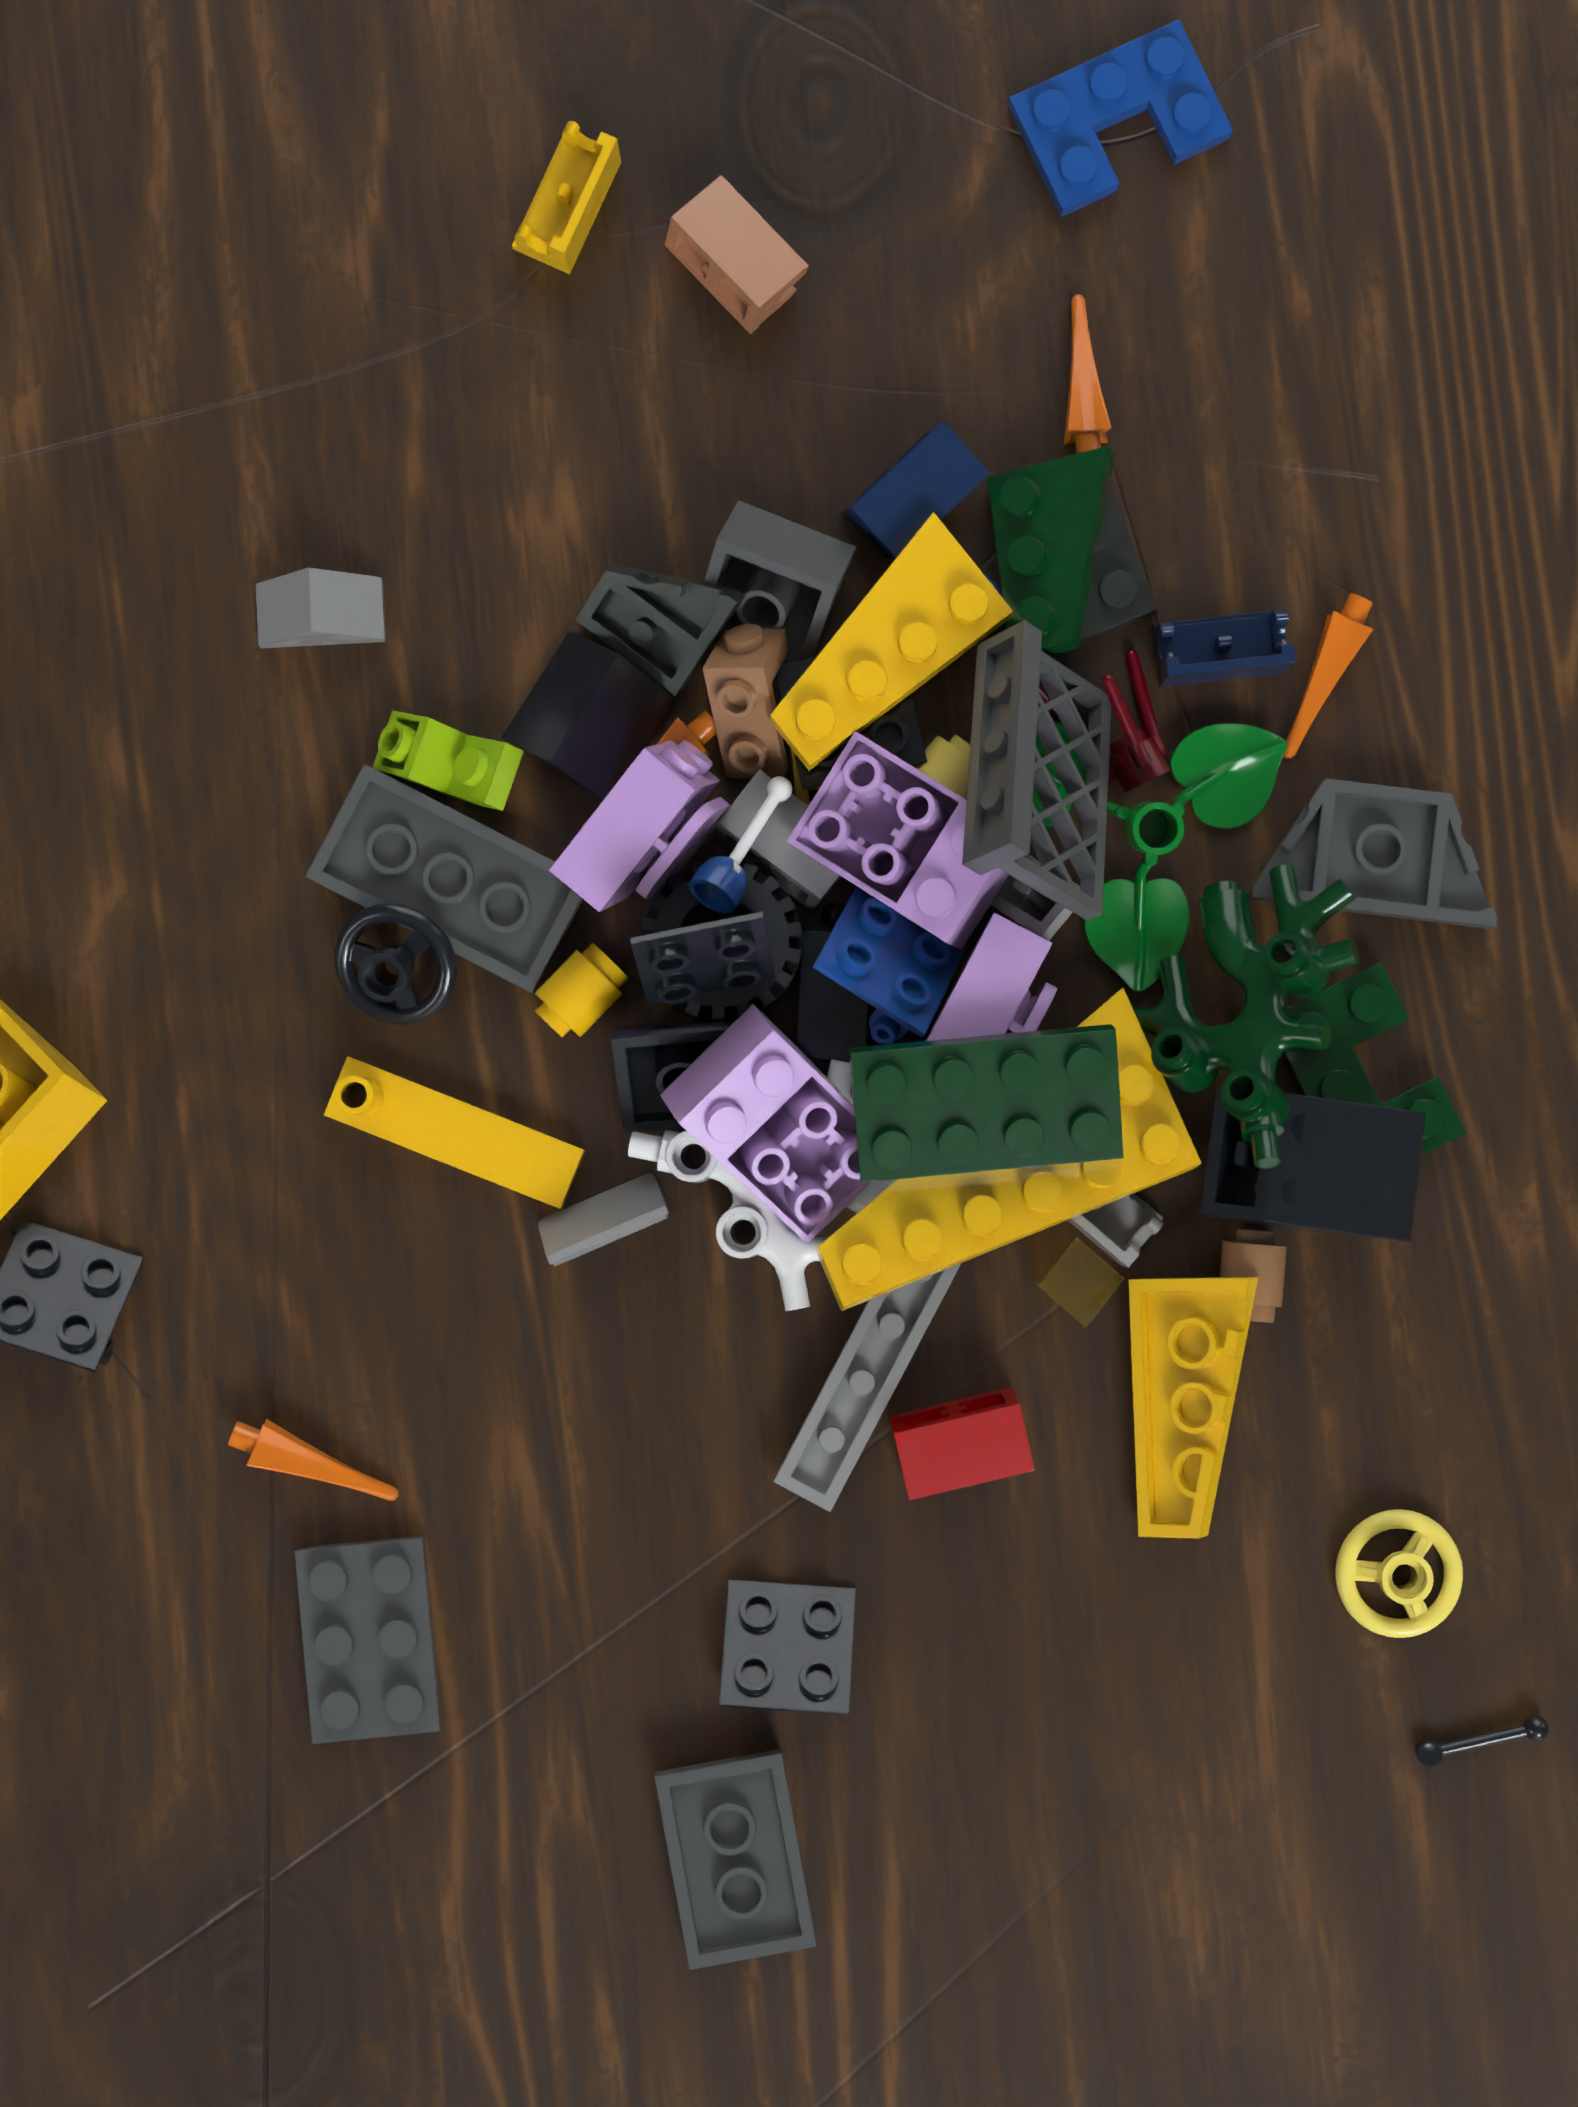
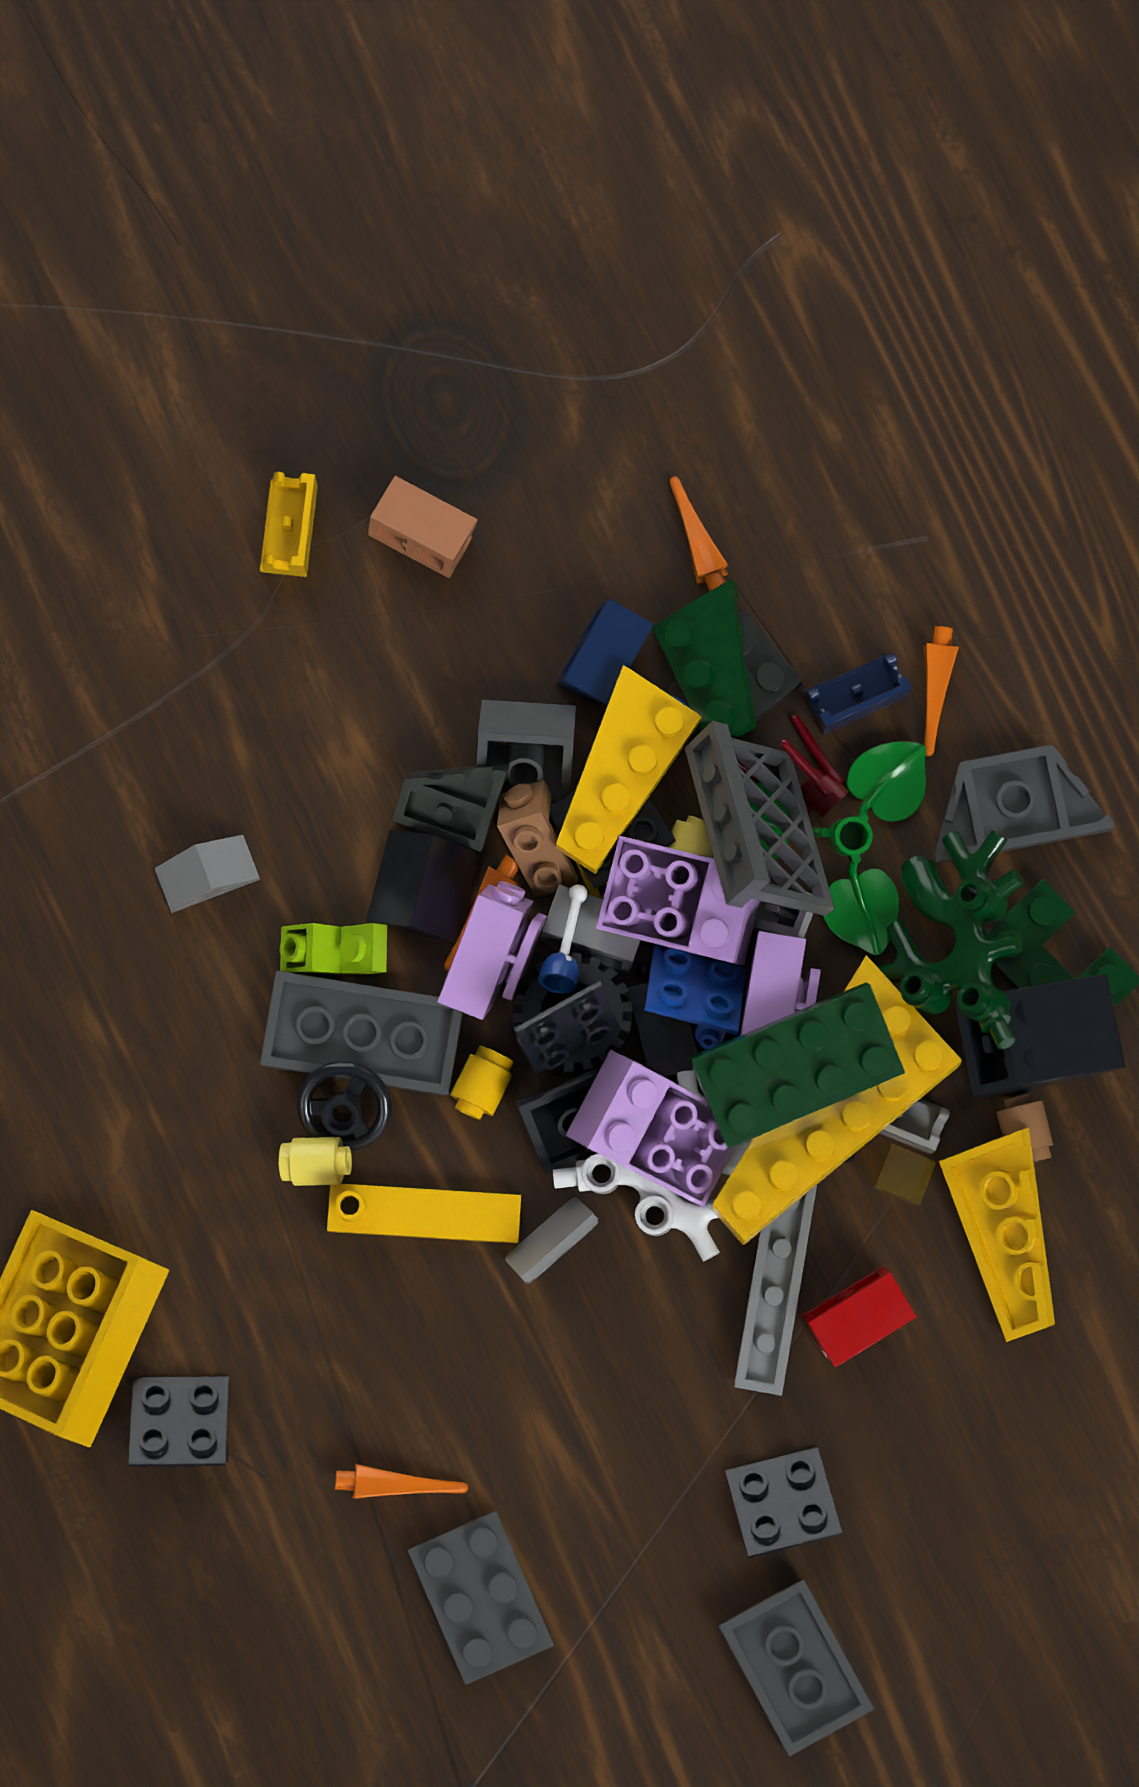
camera: 20 degrees left, 5 degrees down
(334, 1022) = (314, 1161): none -> light yellow brick
(1147, 74) = (623, 351): blue plate -> none

